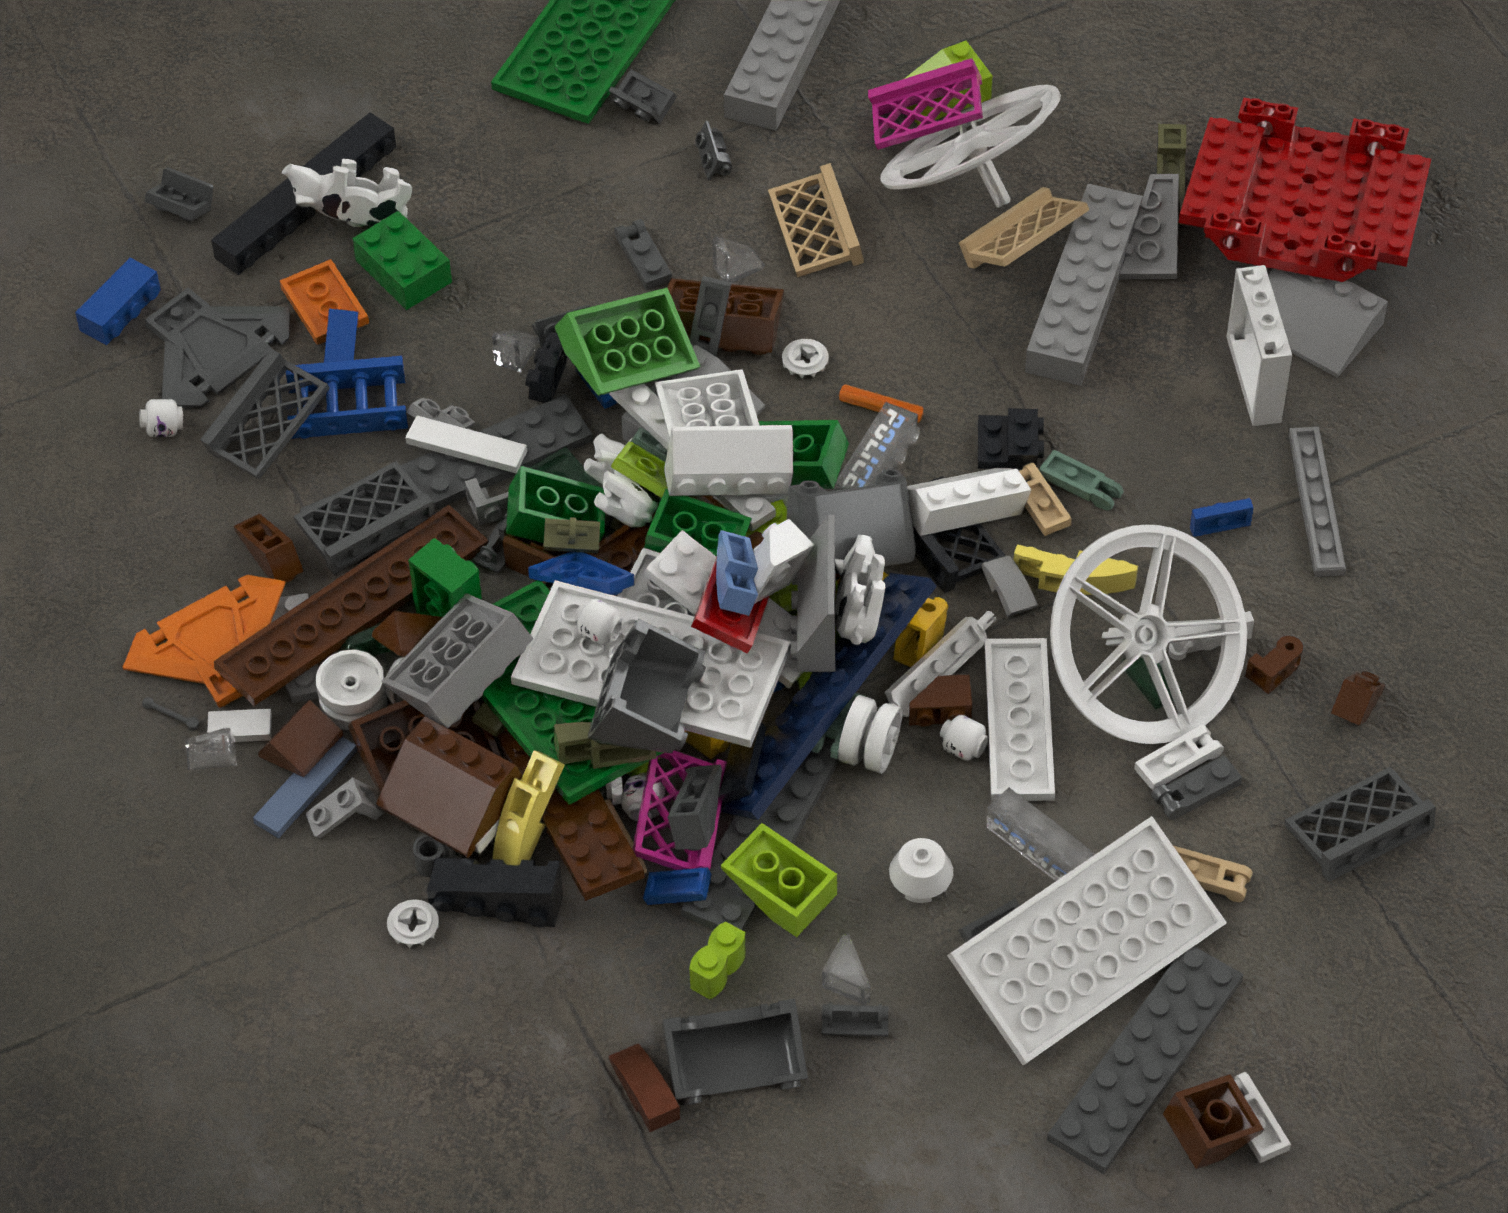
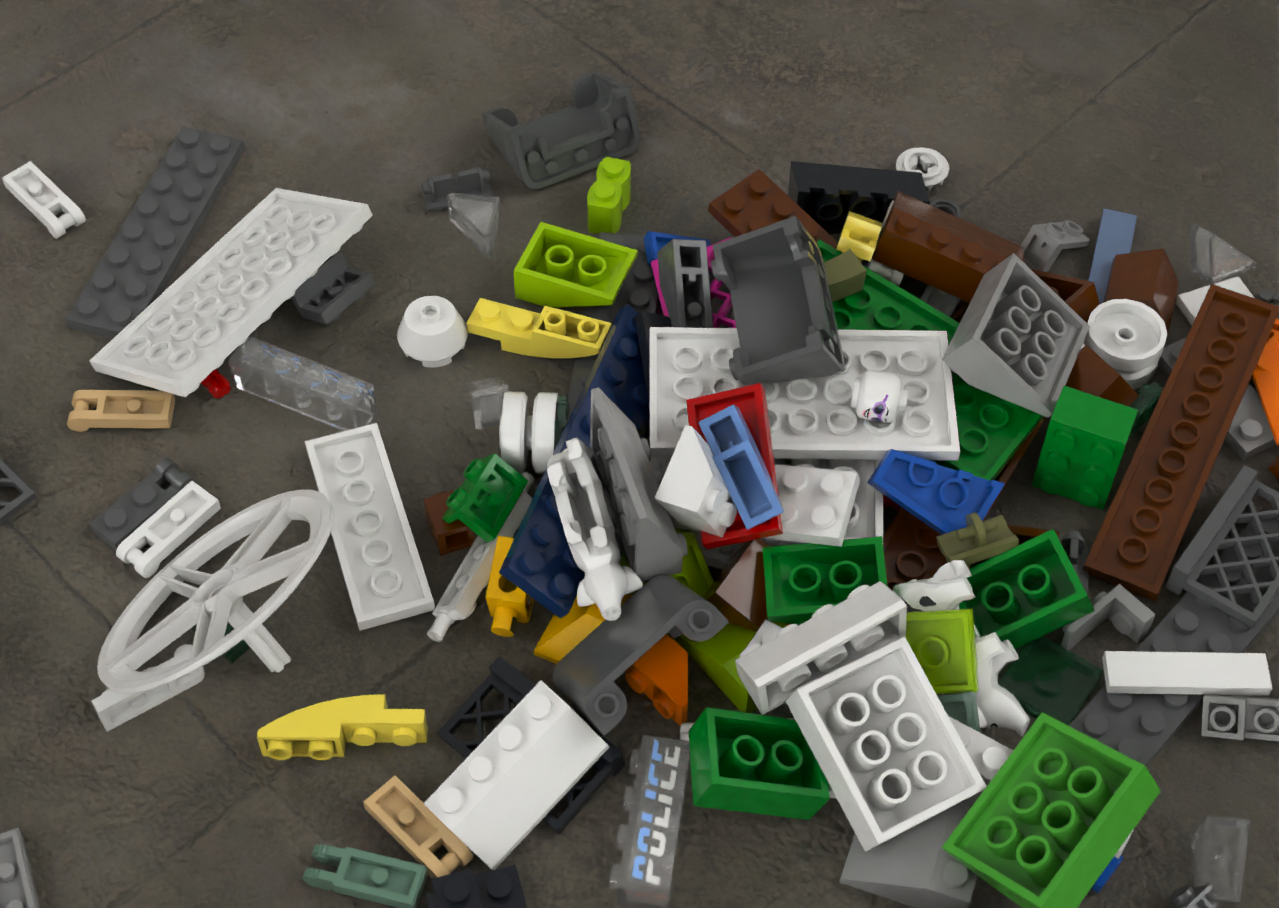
camera: 160 degrees right, 0 degrees up
(548, 371) = (1154, 836): black plate -> none
(645, 1087) = (649, 99): copper slope -> none
(826, 838) = (543, 334): none -> light yellow slope
(891, 794) = (486, 401): none -> clear slope
(926, 684) = (485, 496): none -> green bracket
(964, 737) = (424, 479): white head -> none
(1009, 582) = (423, 687): light grey slope -> none
(1212, 1120) = (81, 170): reddish brown slope -> none
(1221, 517) = (157, 867): blue plate -> none
(1276, 665) = (59, 674): reddish brown leg -> none

